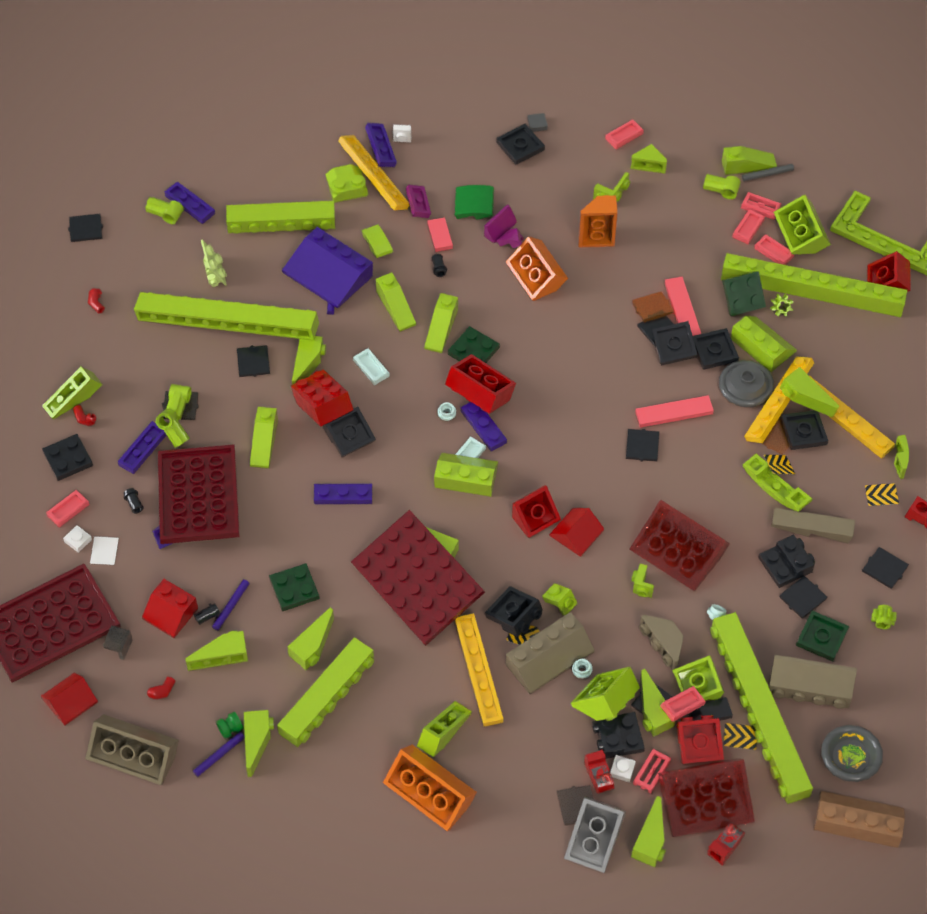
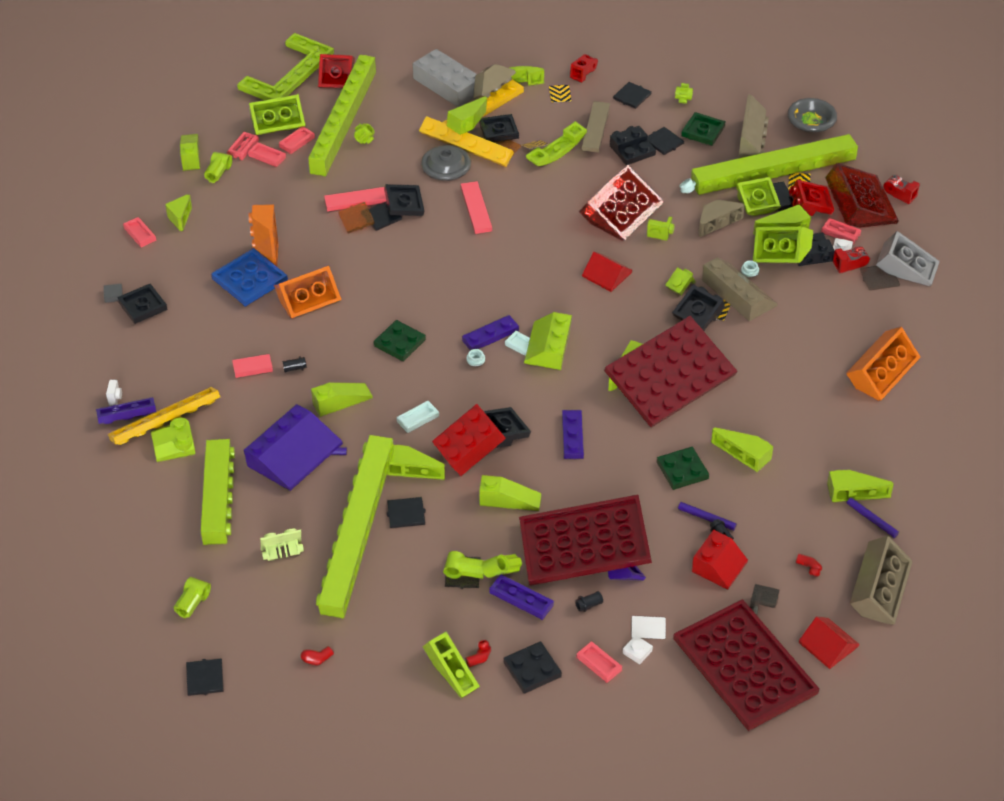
camera: 90 degrees left, 10 degrees down
(192, 204) = (175, 580): dark purple plate -> none
(224, 650) = (763, 516): lime slope -> none
(229, 725) = (841, 504): green wheel -> none
(326, 692) = (798, 436): lime brick -> none
(377, 241) = (261, 409): lime slope -> none
(418, 201) = (209, 379): magenta plate -> none
(441, 322) = (366, 359): lime slope -> none
(443, 728) = (827, 355): lime slope -> none
(474, 201) = (213, 339): green slope -> none
(479, 670) = (763, 333): yellow plate -> none
(480, 383) = (452, 324): red brick -> none
(499, 224) = (245, 320): magenta slope -> none
(512, 237) = (267, 307): magenta slope -> none
(535, 511) = (590, 295): red slope -> none
(555, 222) = (249, 277): none -> blue plate
(623, 184) = (219, 237): lime bracket -> none
(642, 445) = (511, 229): black piece -> none
(651, 838) = (909, 226): lime slope -> none
(683, 703) = (786, 199): coral tile -> none
(715, 349) = (409, 175): black plate -> none
(744, 293) = (351, 153): dark green plate -> none
(761, 342) = (404, 149): lime slope -> none
(767, 172) = (203, 139): dark grey bar -> none
(860, 819) = (865, 115): medium nougat slope -> none
(875, 415) = (491, 80): none -> dark tan slope
(886, 378) = (445, 77): none -> light grey brick

